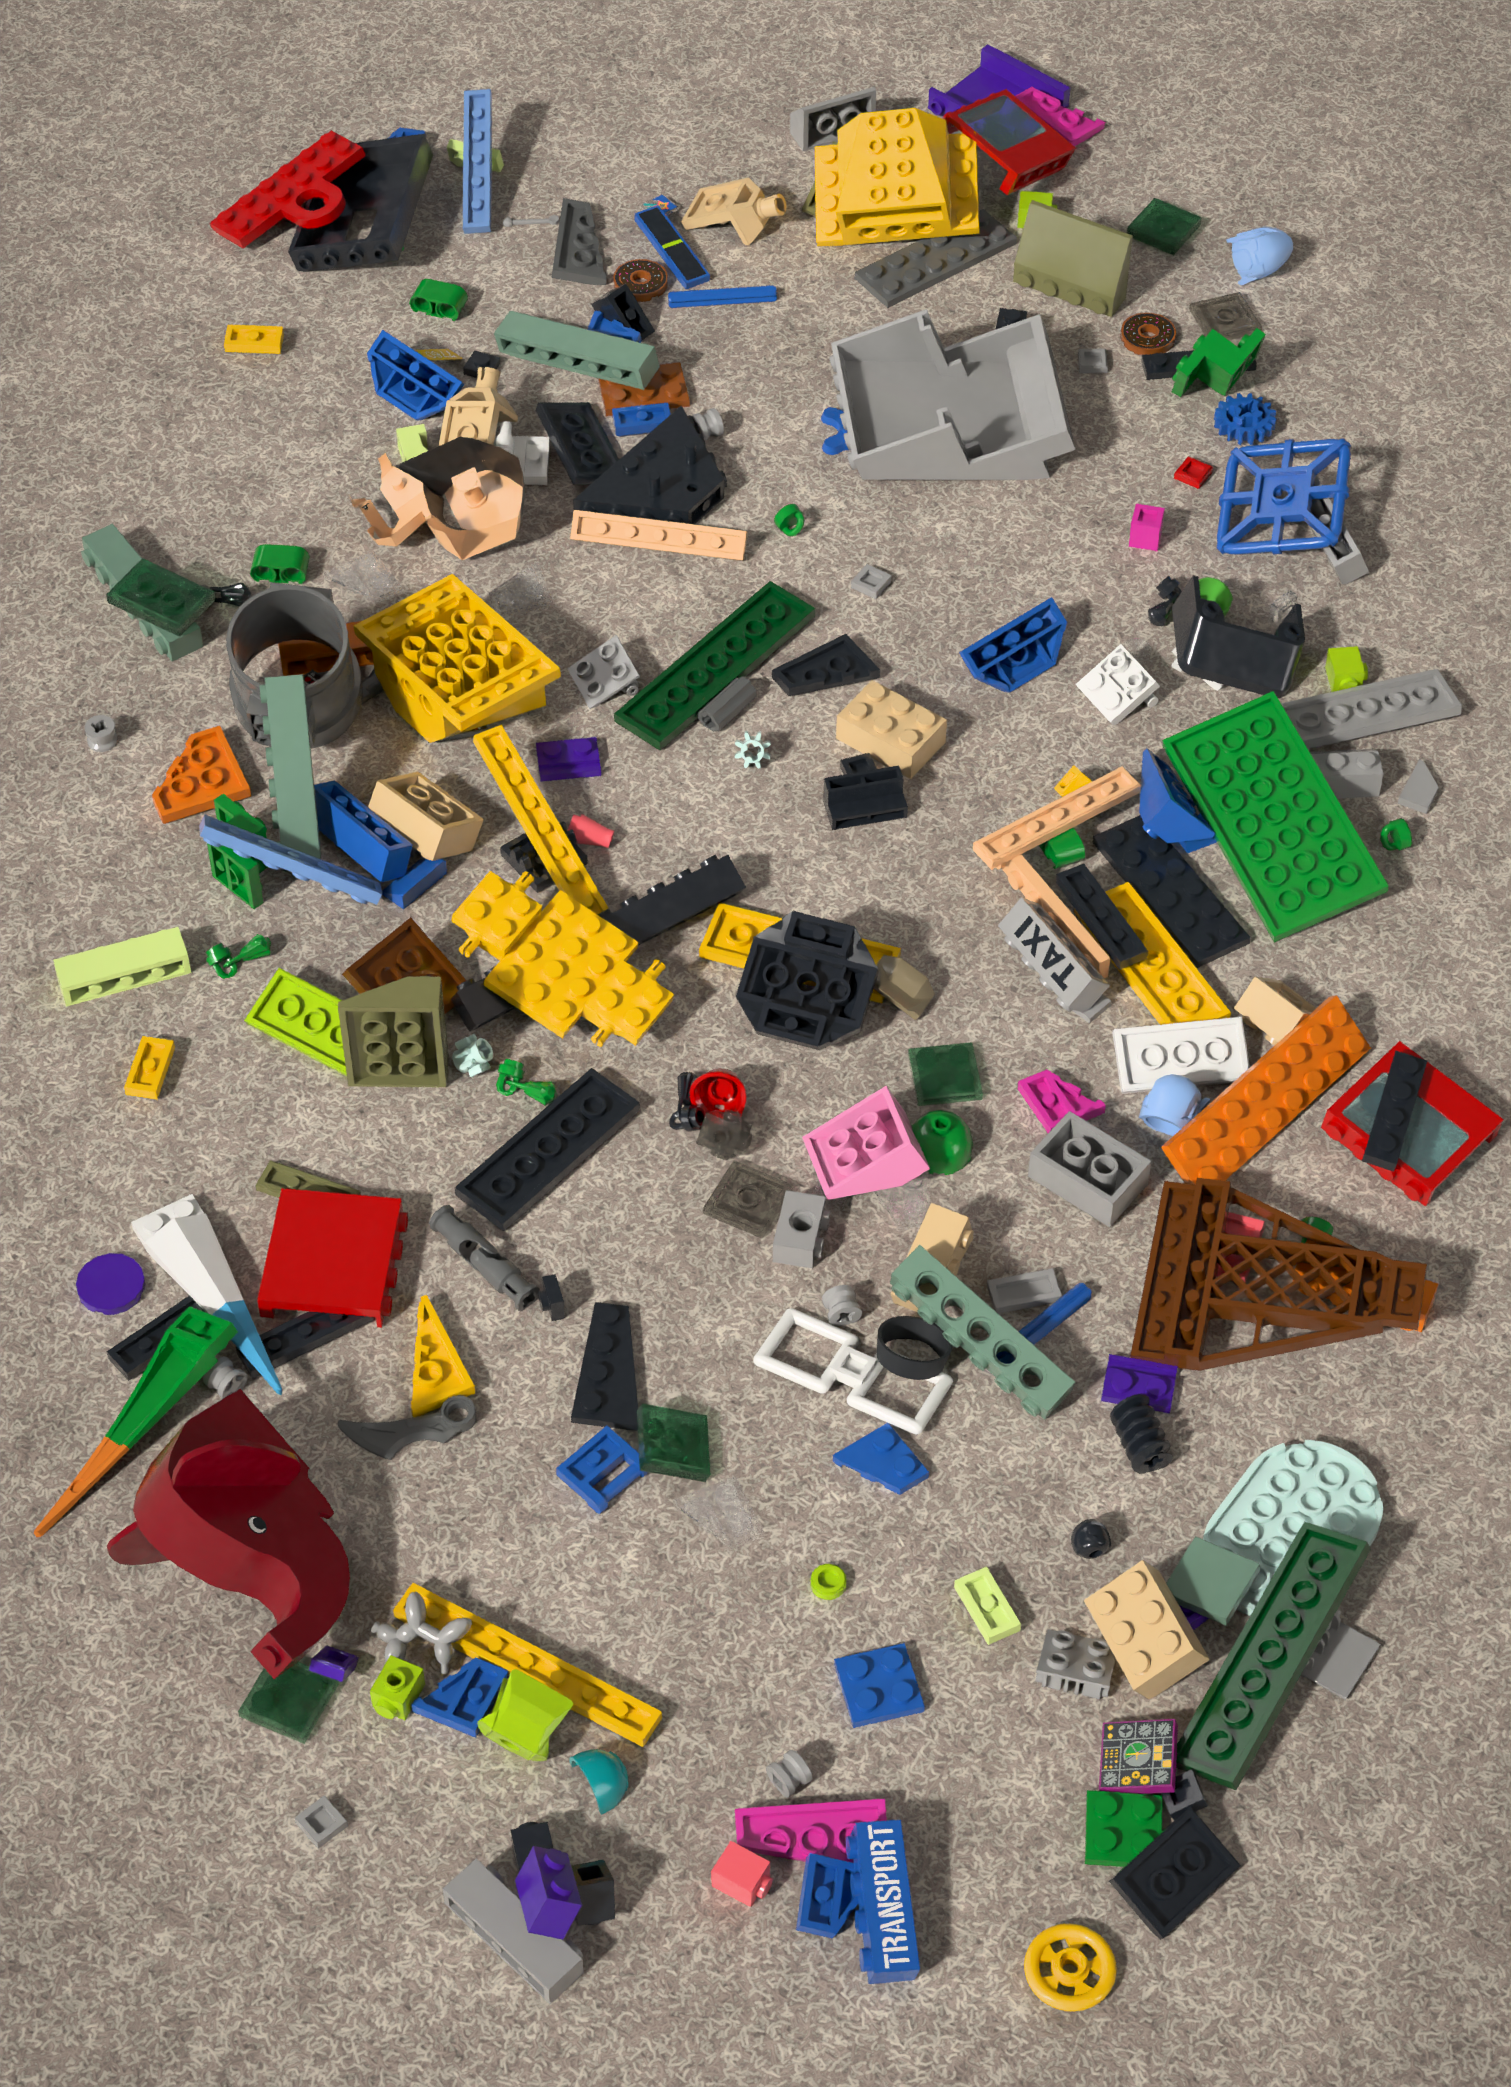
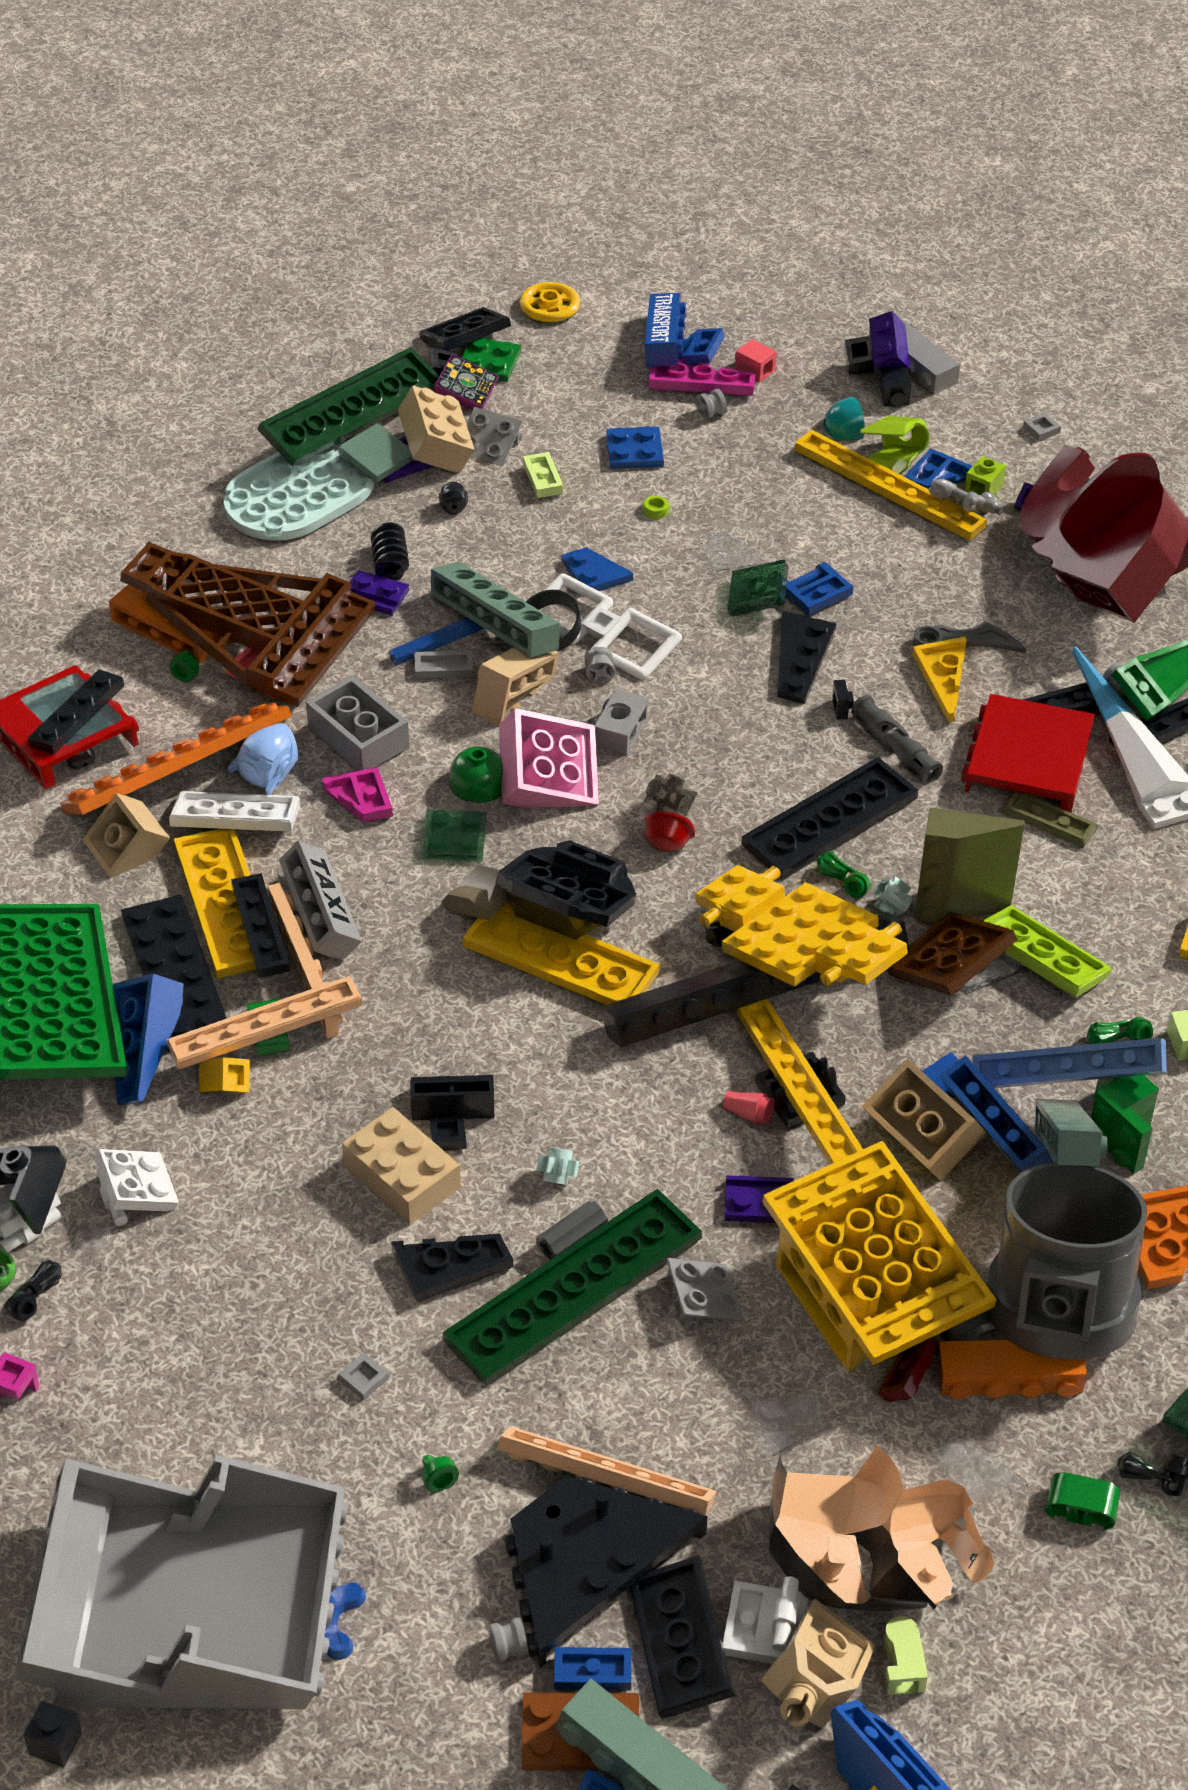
camera: 170 degrees left, 5 degrees down
(690, 1115) = (695, 849): black piece -> none
(747, 1199) = (658, 756): clear smoke tile -> none
(1018, 648) = (239, 1243): blue wedge -> none

